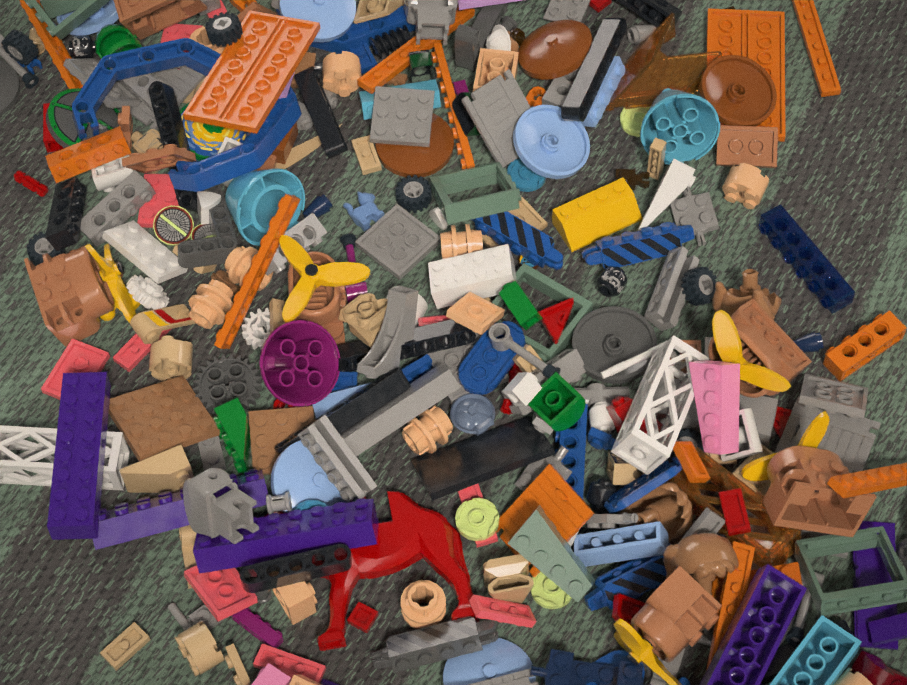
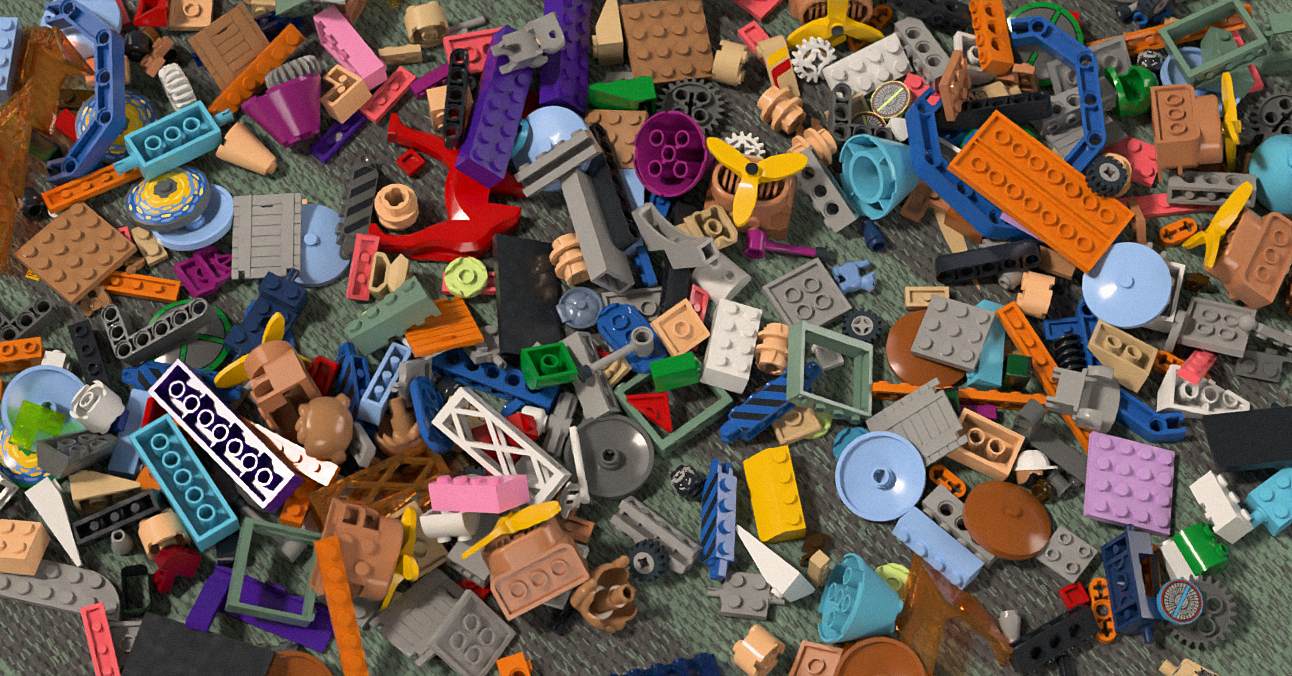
camera: 105 degrees right, 5 degrees up
(253, 278) = (785, 138): orange plate -> none
(279, 503) = (532, 105): light grey bush -> none
(522, 388) = (571, 338): white brick -> none
(593, 69) = (958, 543): beam -> none
(691, 462) = (432, 456): orange tile -> none
(734, 512) = (367, 478): red tile -> none
(810, 342) = (548, 648): dark blue cone -> none

